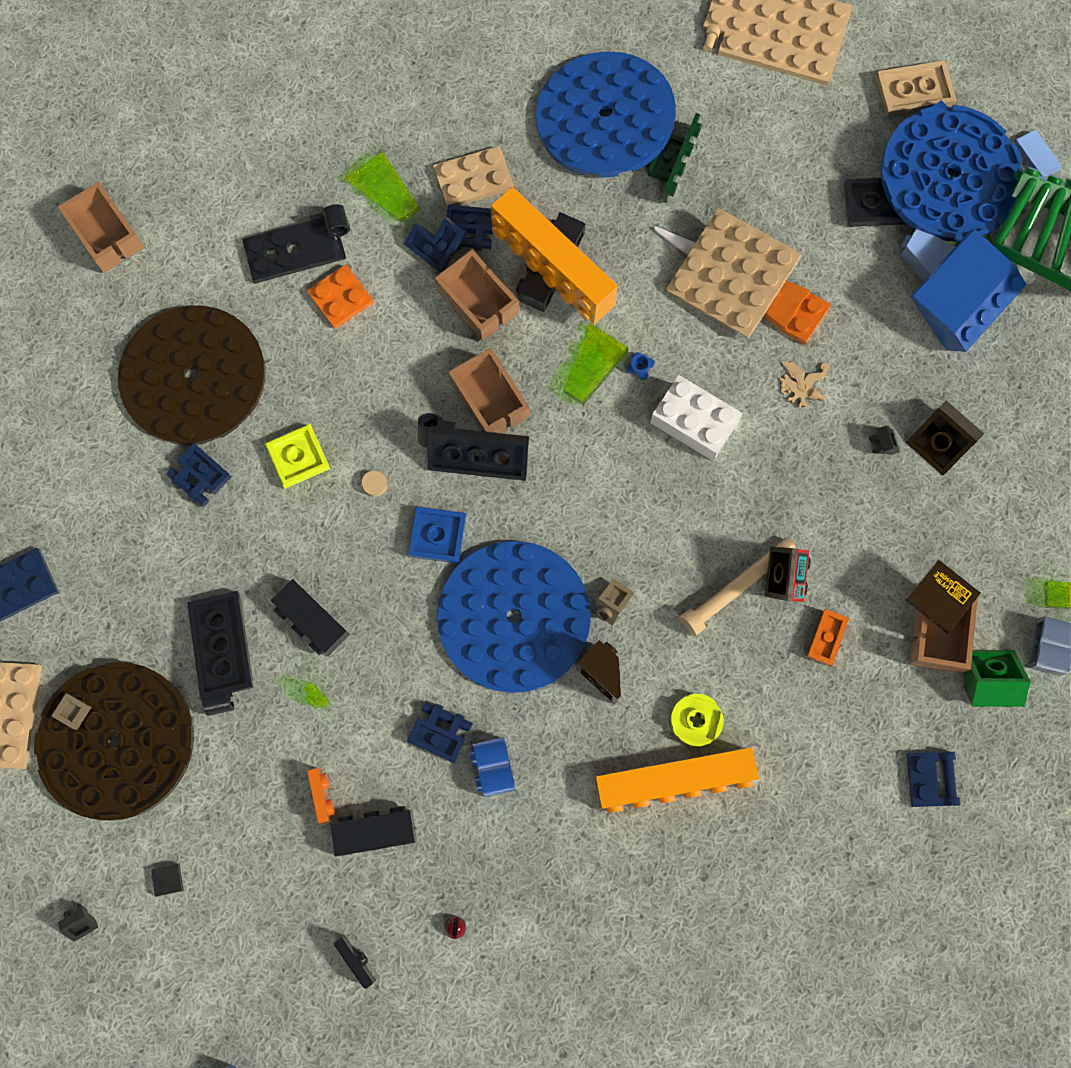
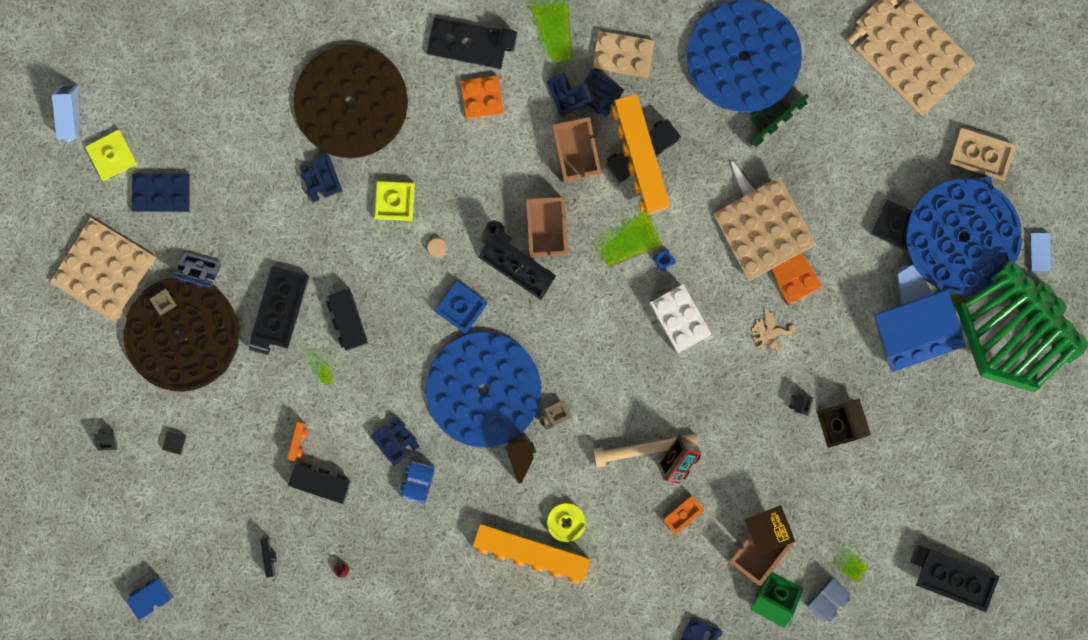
camera: 30 degrees right, 10 degrees up
(103, 647) = (199, 266): none -> dark blue plate

